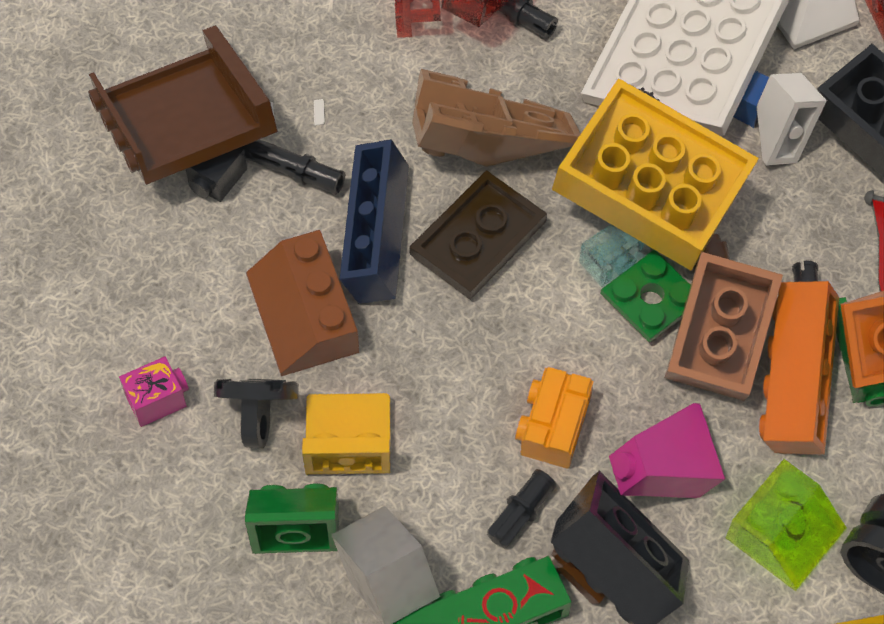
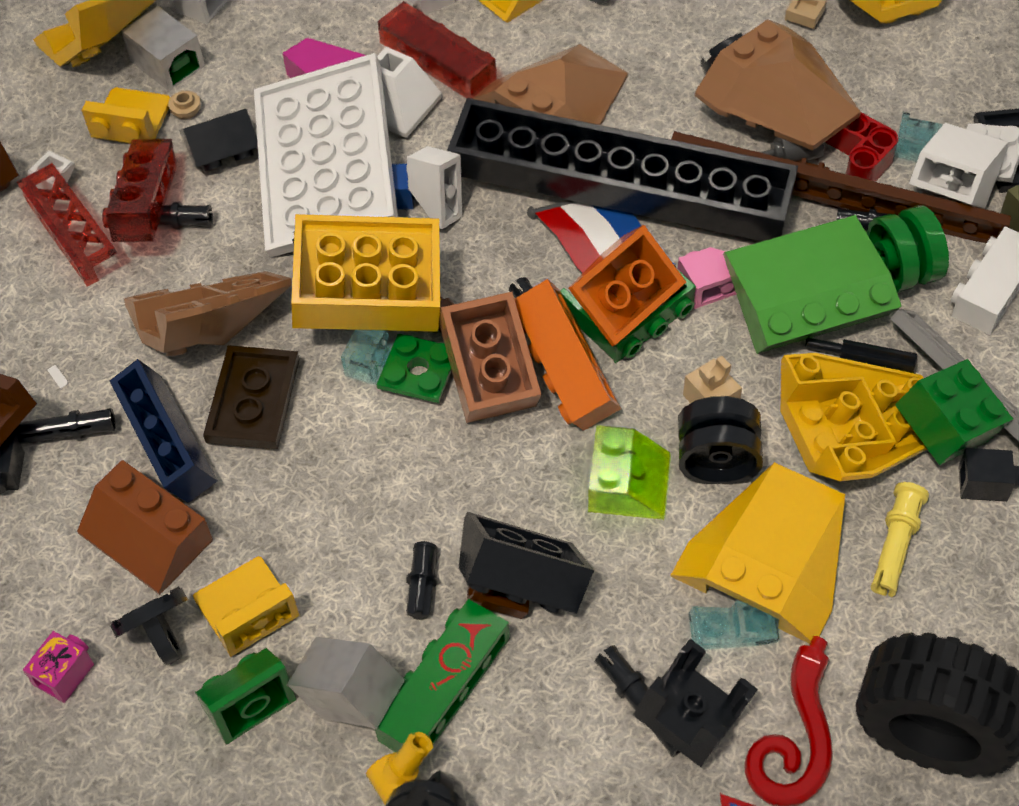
camera: 30 degrees left, 5 degrees down
(555, 418) = (404, 497): light orange brick -> none
(669, 458) = (512, 475): dark pink slope -> none

